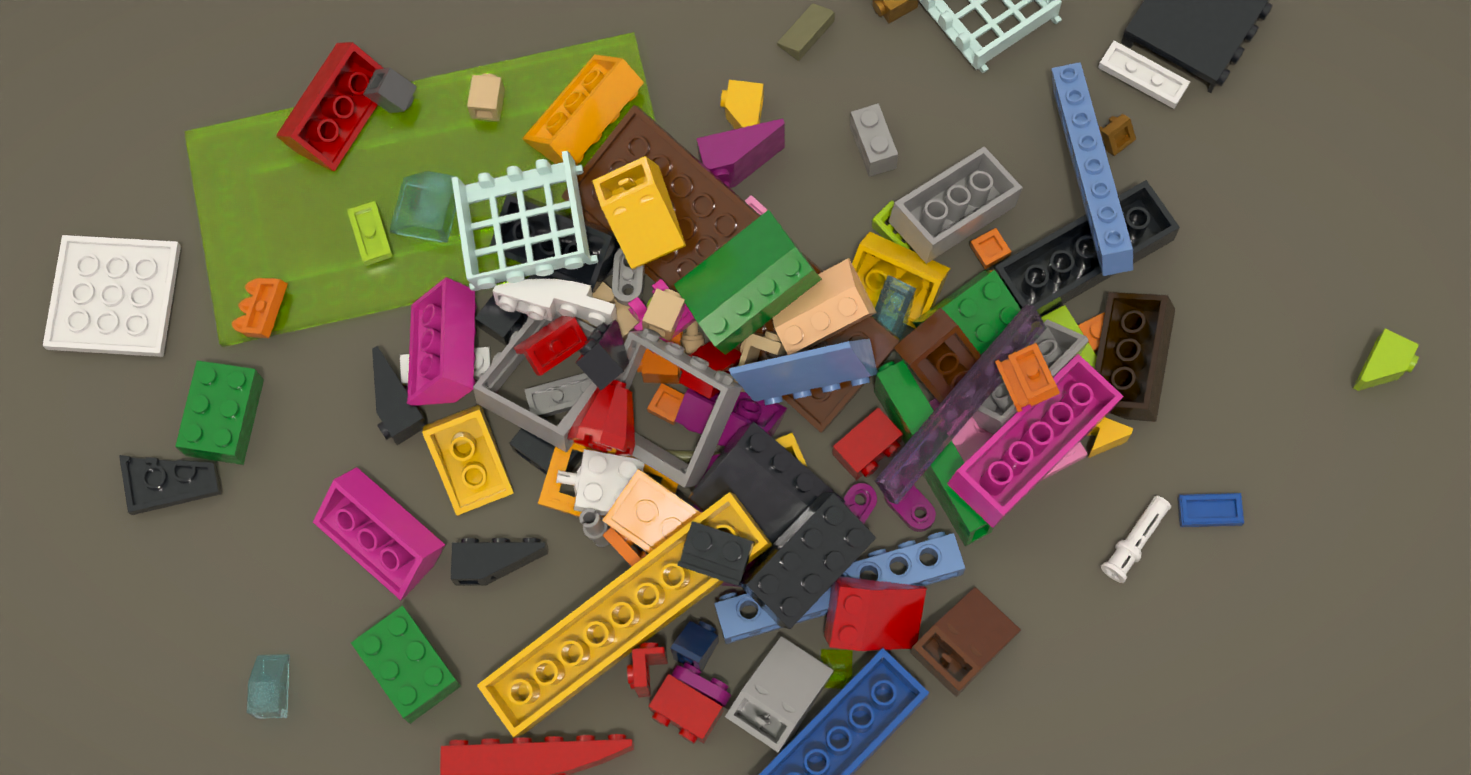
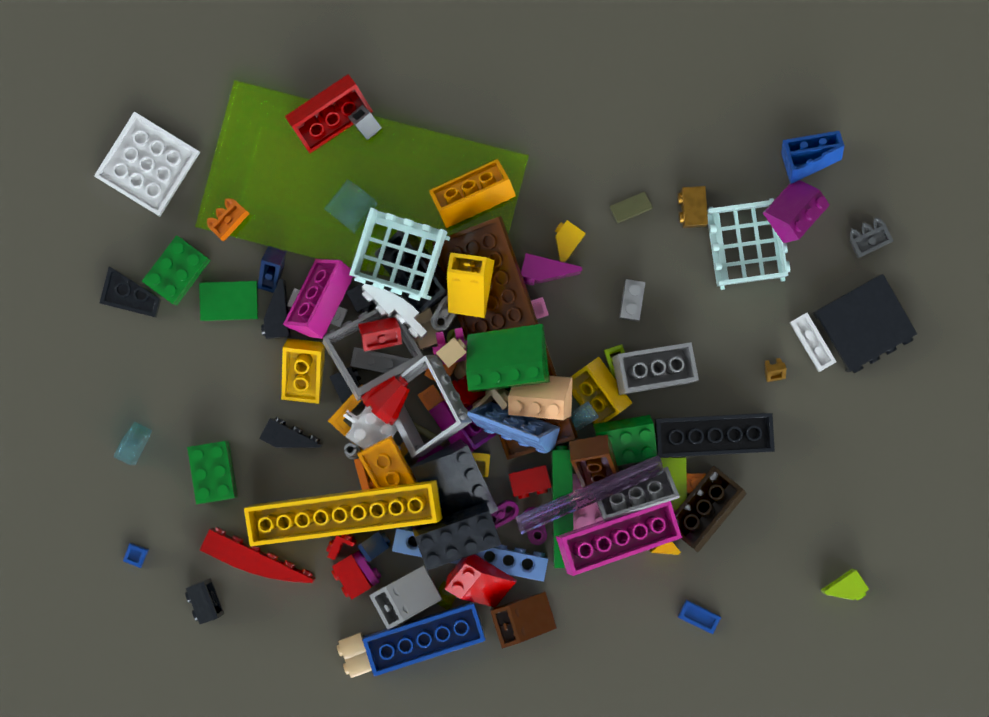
camera: 25 degrees right, 15 degrees up
(315, 419) = (228, 301): none -> green tile
(354, 345) = (271, 268): none -> dark blue slope
(370, 233) = (311, 205): lime plate -> none
(378, 532) = (232, 387): dark pink slope -> none
(486, 97) = (419, 154): tan brick -> none
(603, 355) = (403, 364): black slope -> none
(716, 553) = (405, 513): black plate -> none
(990, 248) = (662, 401): orange plate -> none
(1027, 377) = (632, 502): orange plate -> none
(1092, 170) = (744, 390): medium blue brick -> none
(1129, 550) = (640, 616): white pin -> none

